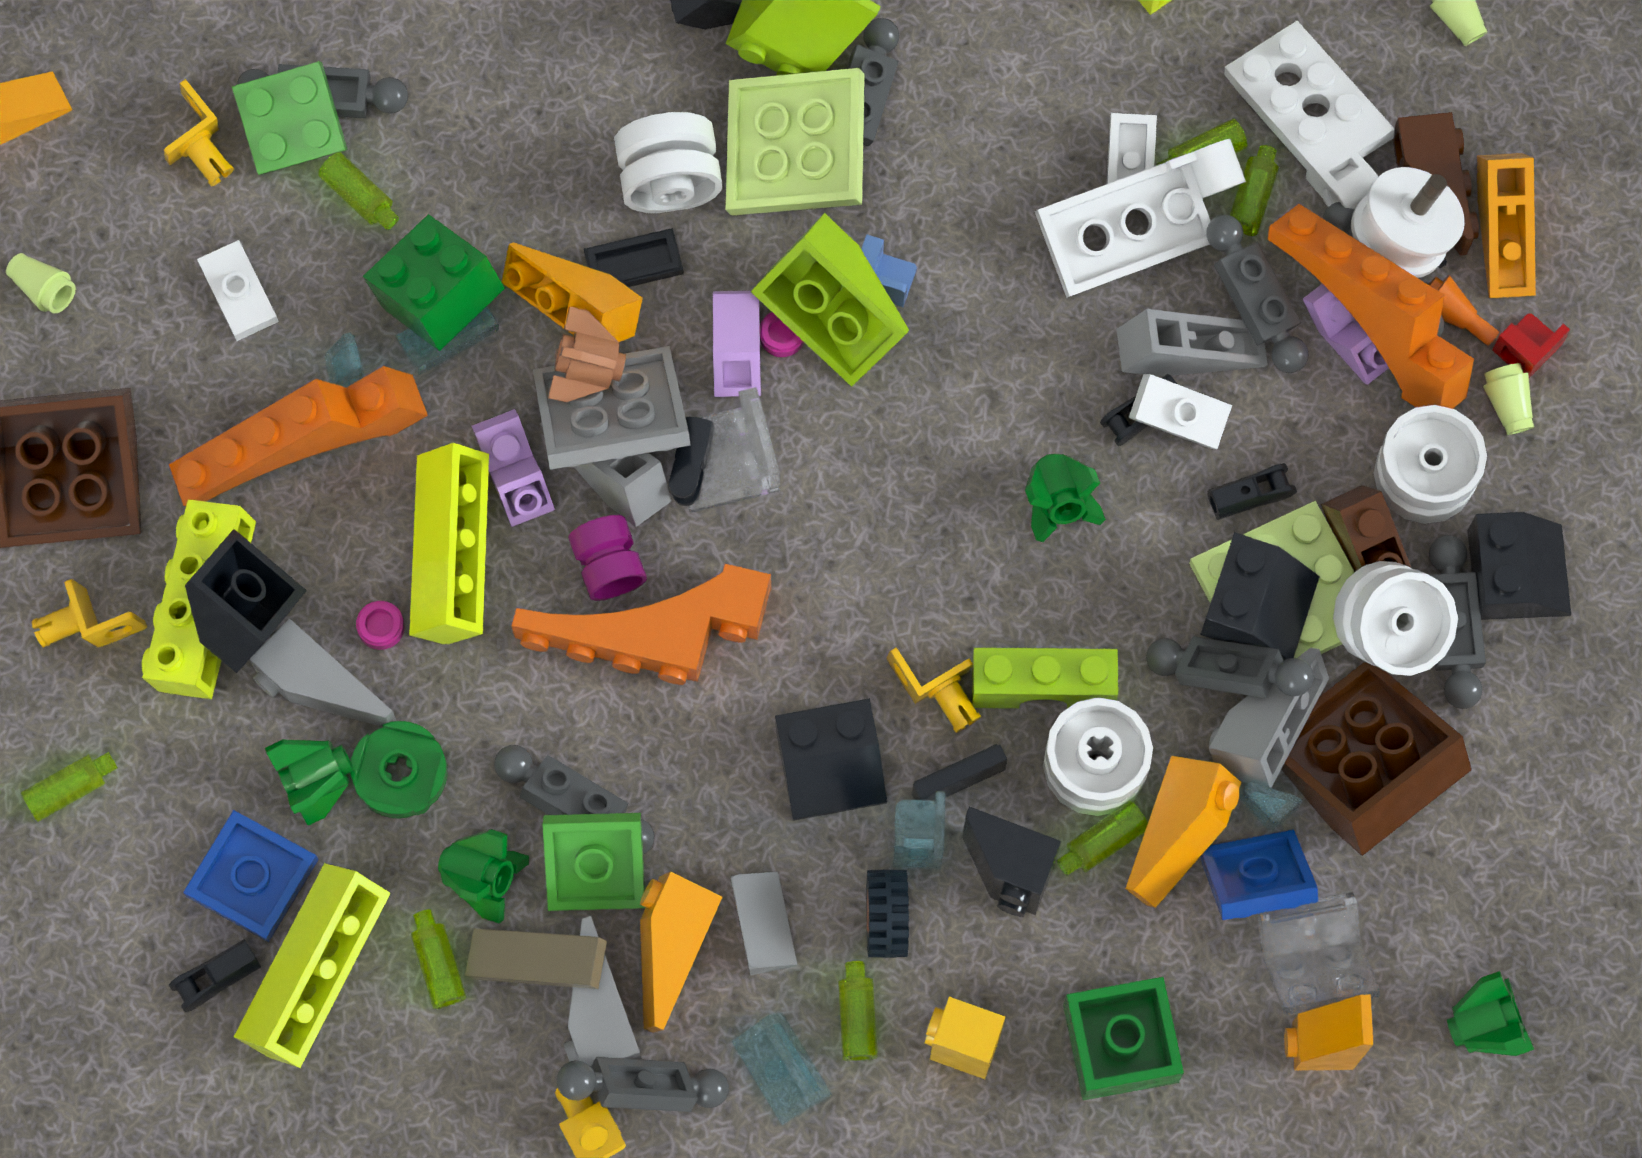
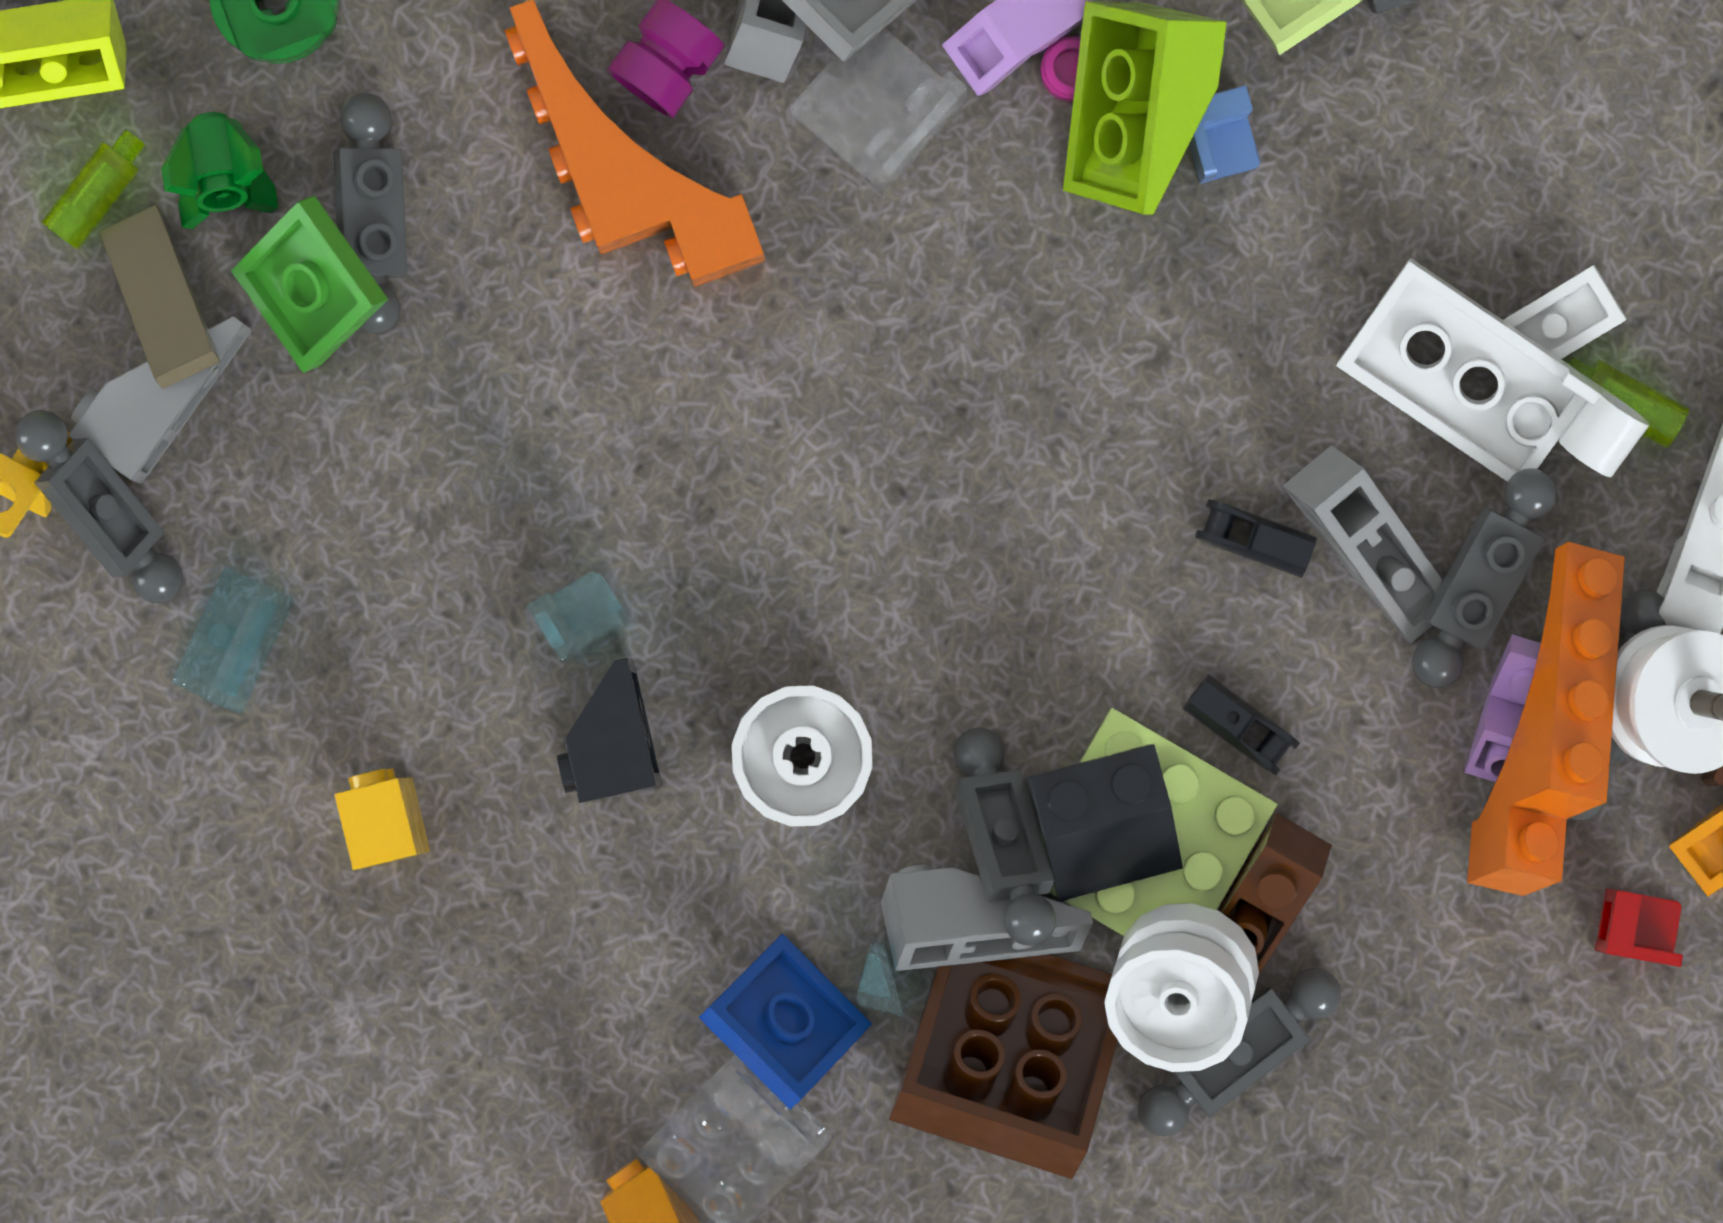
camera: 55 degrees right, 15 degrees up
(671, 936) = (290, 425): light orange slope -> none
(690, 462) = (829, 77): black bar -> none
(763, 922) = (375, 511): light grey slope -> none
(831, 759) = (603, 463): black slope -> none
(857, 1014) = (342, 683): clear neon green cylinder -> none
(887, 913) = (465, 643): black wheel -> none
(944, 689) = (769, 535): yellow bracket -> none
(961, 774) = (680, 616): black tile -> none
(1025, 674) = (855, 636): lime arch -> none
(1061, 494) = (1085, 512): green brick -> none
(1103, 839) = (718, 822): clear neon green cylinder -> none
(1123, 1038) = (499, 990): green brick -> none
(1180, 411) = (1277, 583): white plate -> none
(1183, 823) = (794, 899): light orange slope -> none
(1255, 193) = (1604, 497): clear neon green cylinder -> none
(1433, 437) = (1366, 902): white wheel -> none
(1460, 312) = (1625, 816): orange cone -> none
(1510, 397) = (1556, 947): yellowish green cone -> none
(1519, 566) = (1353, 1084): black slope -> none

